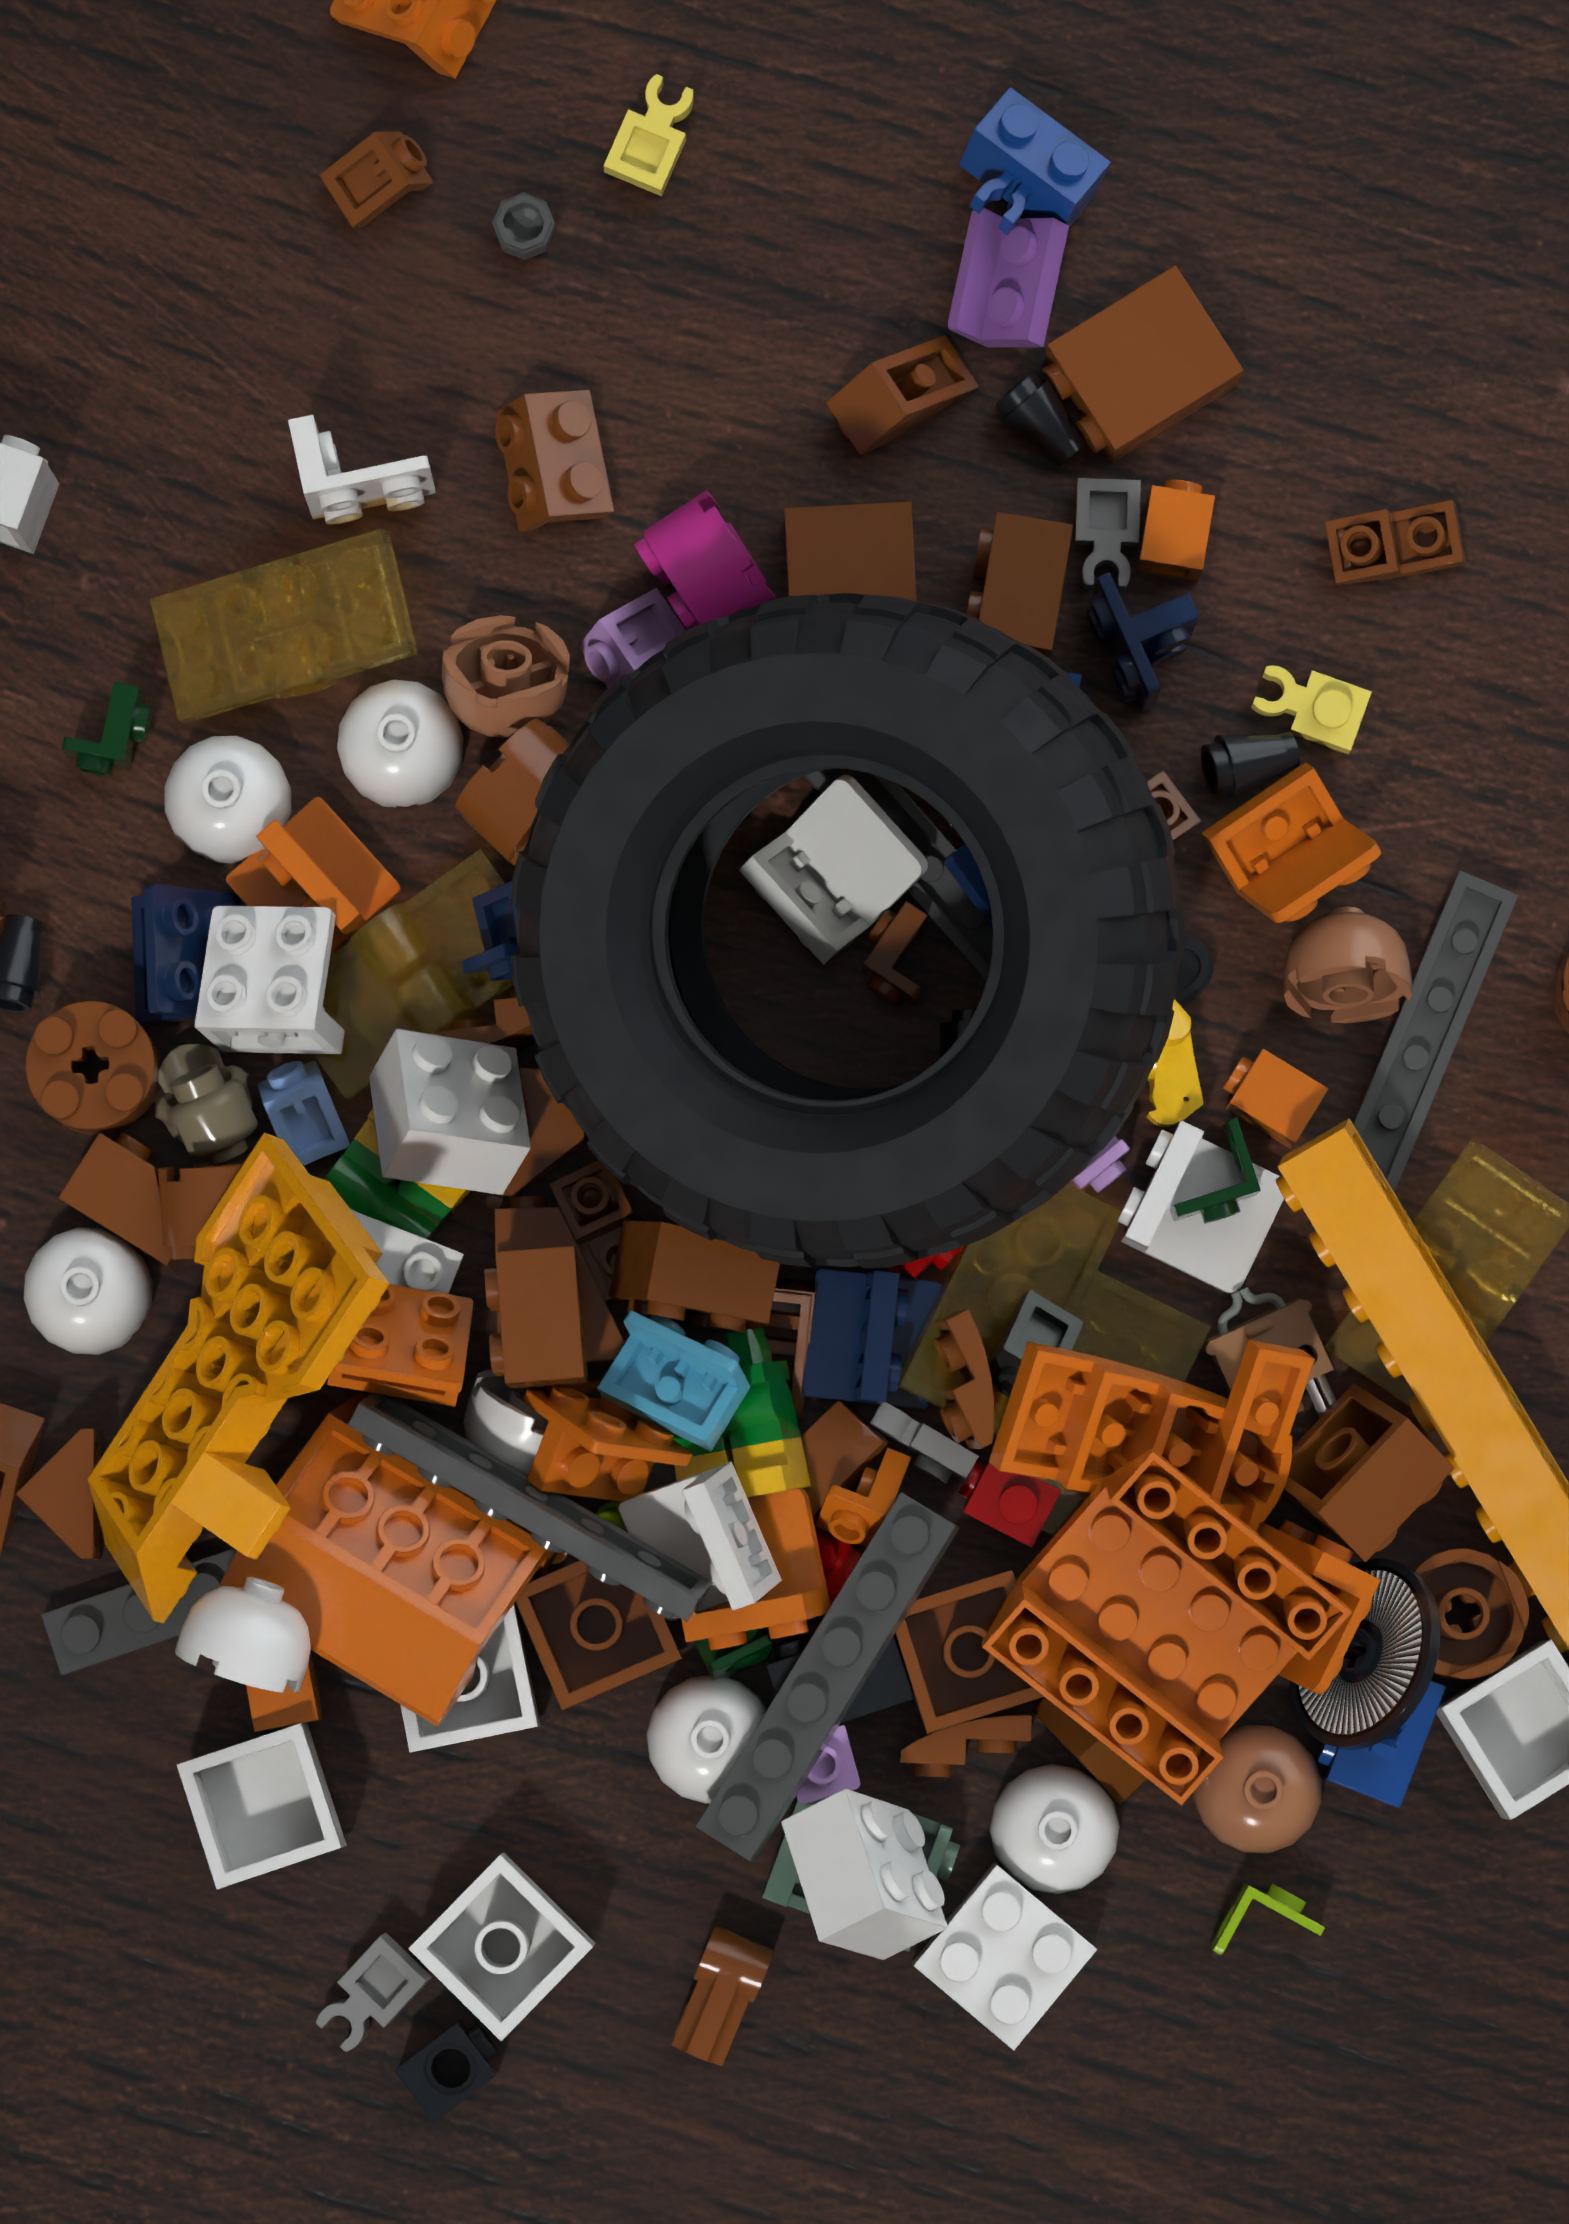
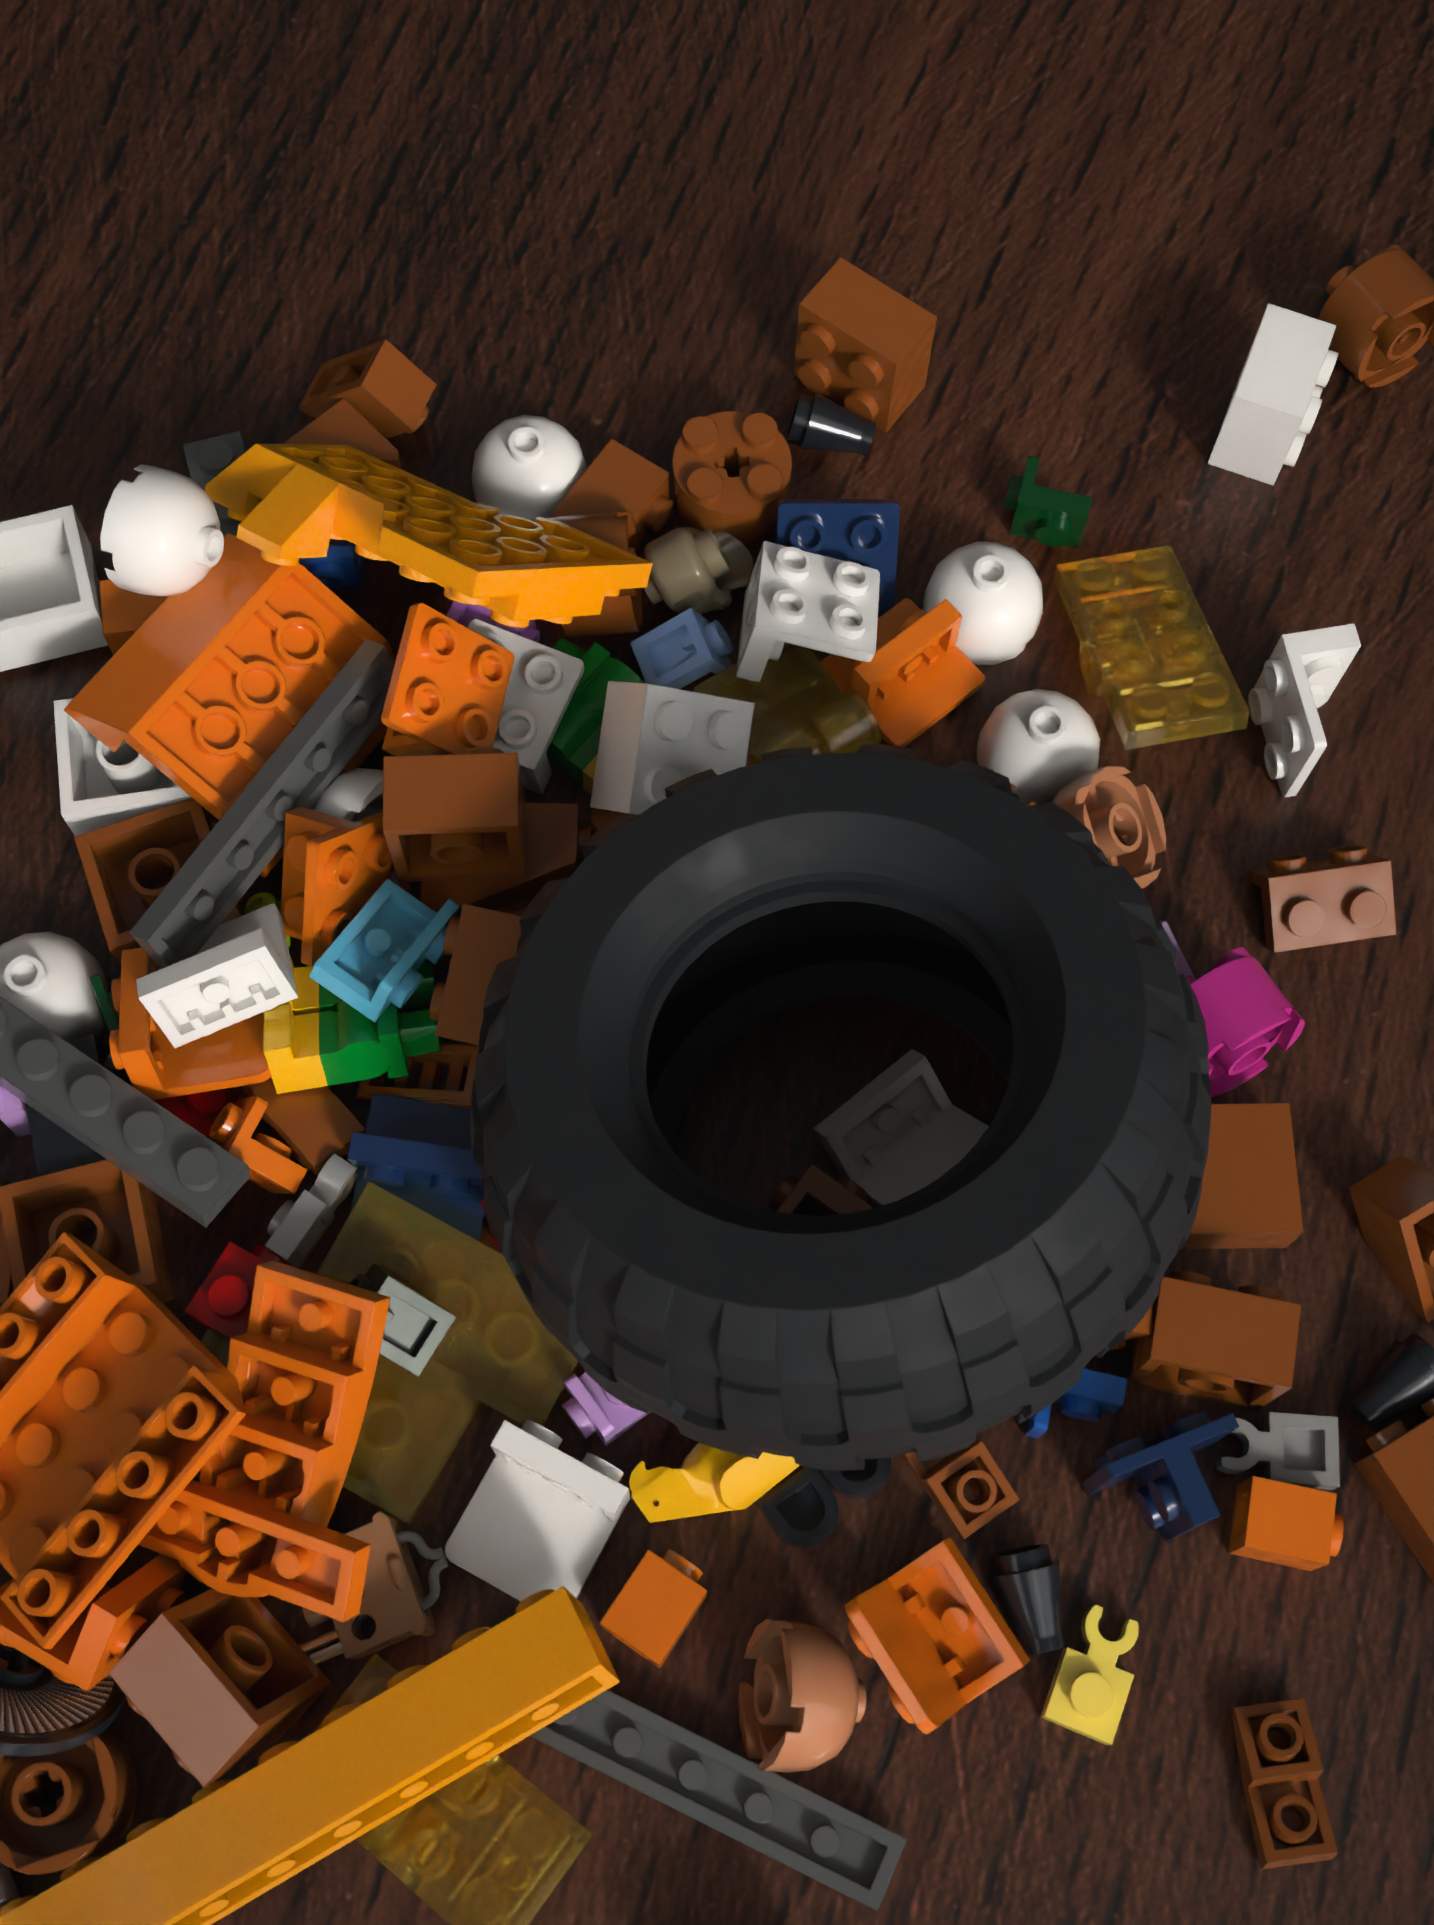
camera: 90 degrees right, 15 degrees down
(970, 1401) = (343, 1242): dark orange slope -> none
(1224, 1201) = (539, 1540): dark green bracket -> none

